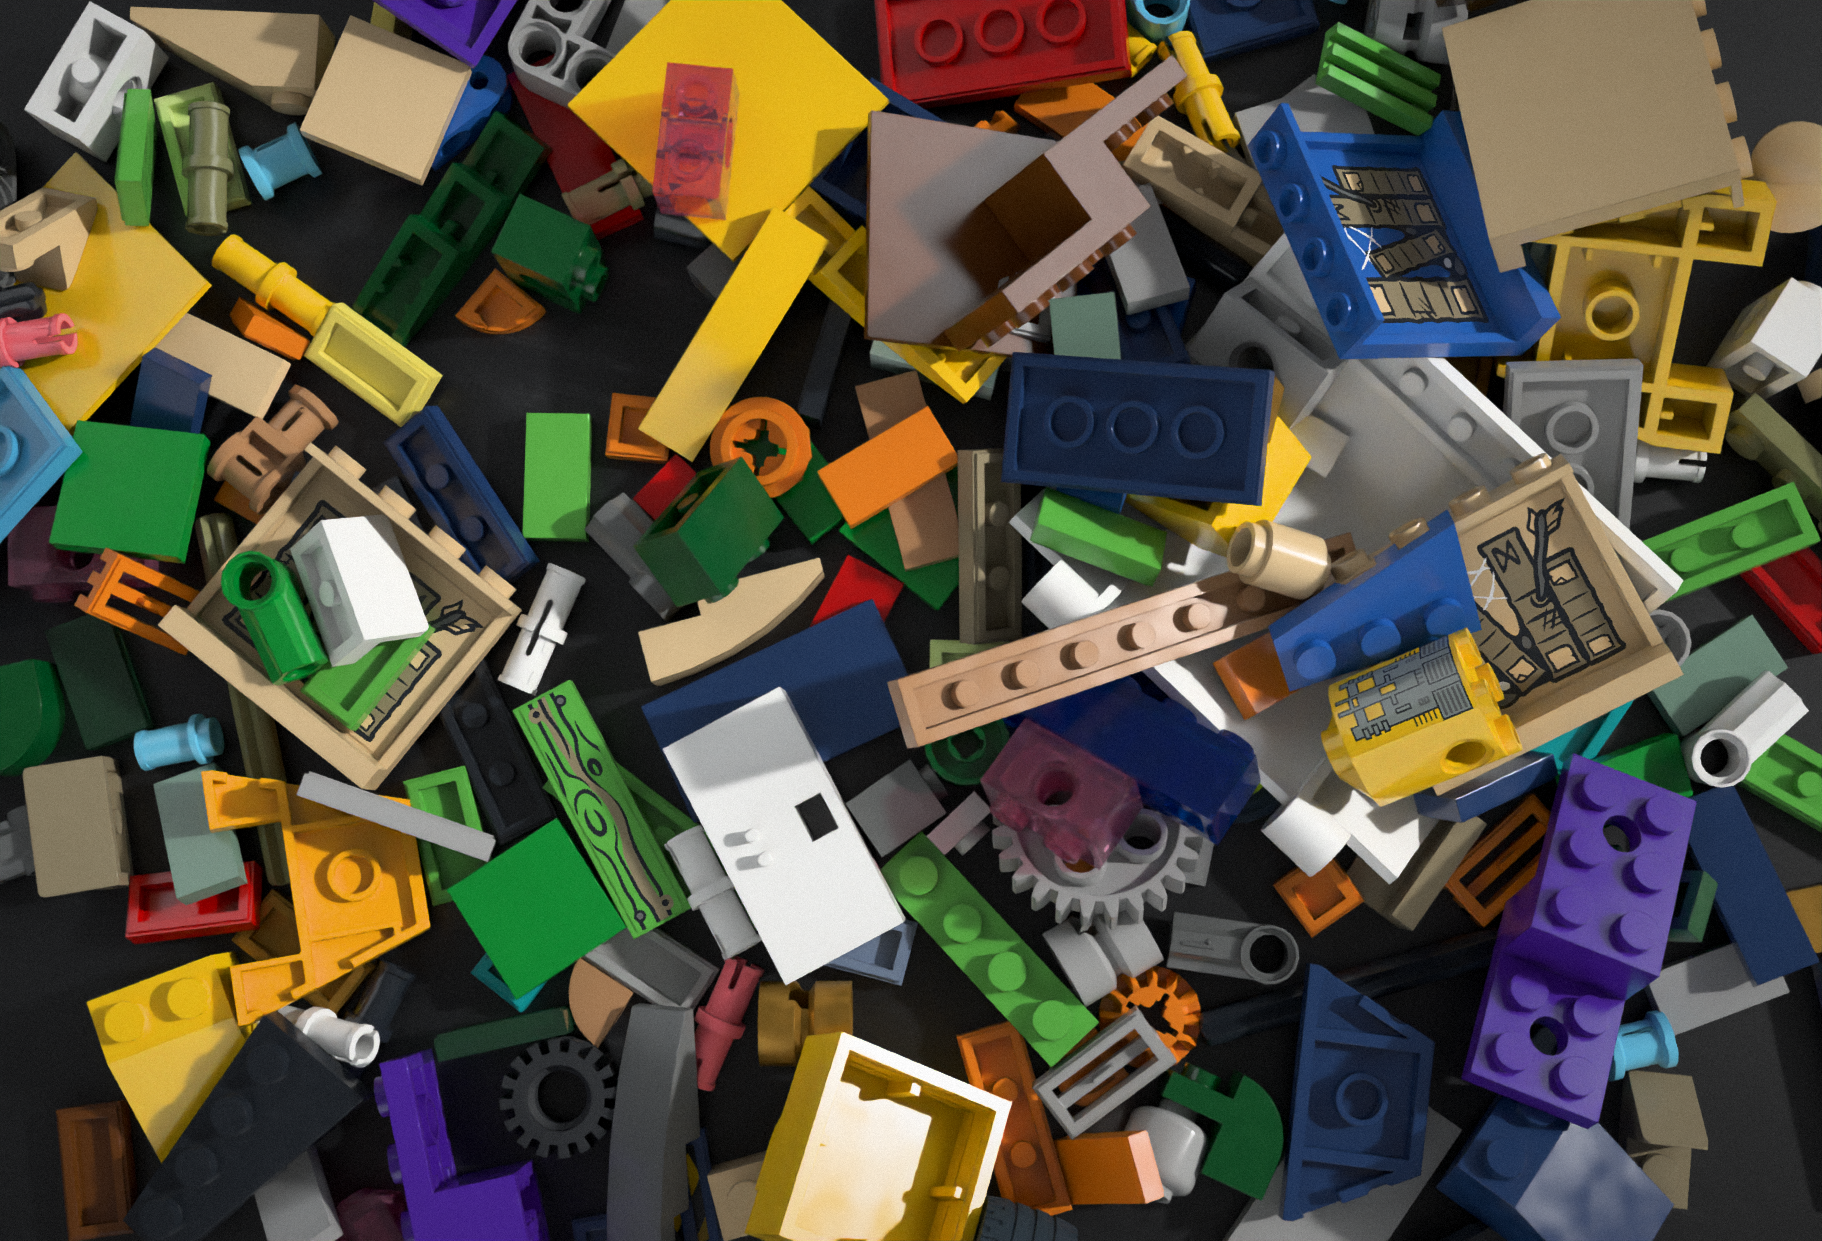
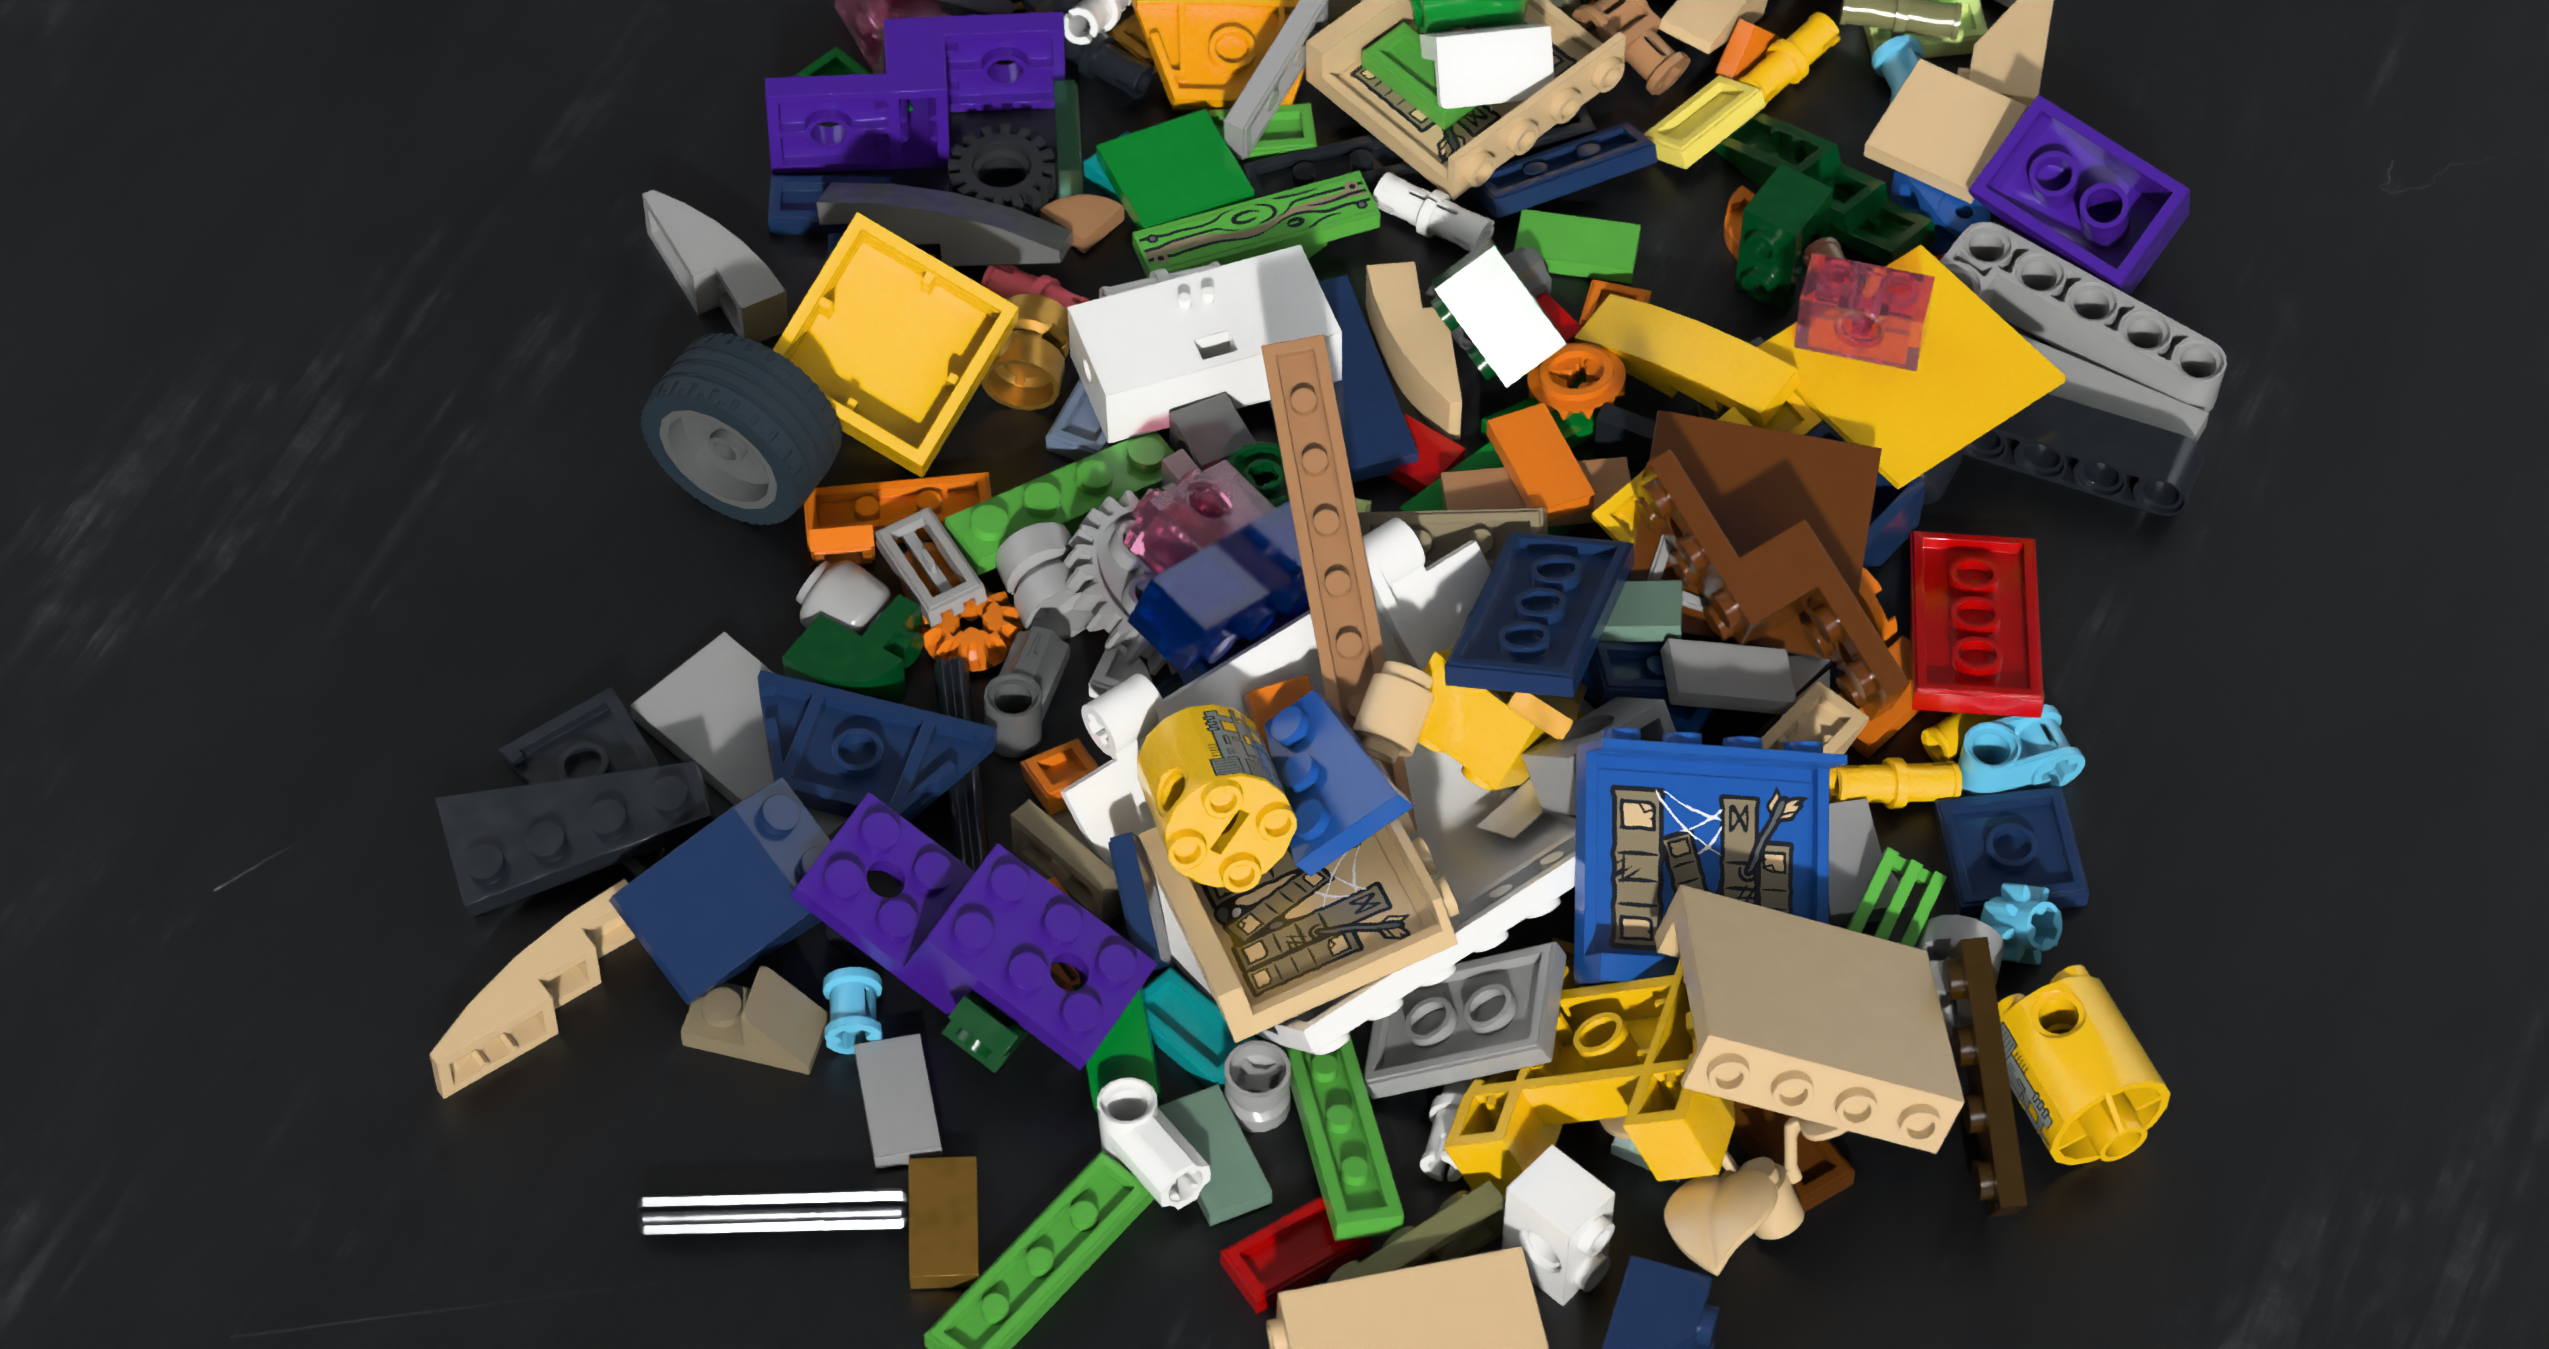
camera: 100 degrees right, 30 degrees down
(656, 967) = (1101, 260): light grey tile -> none
(1099, 537) = (1441, 595): bright green tile -> none
(1748, 889) = (994, 1126): dark blue tile -> none

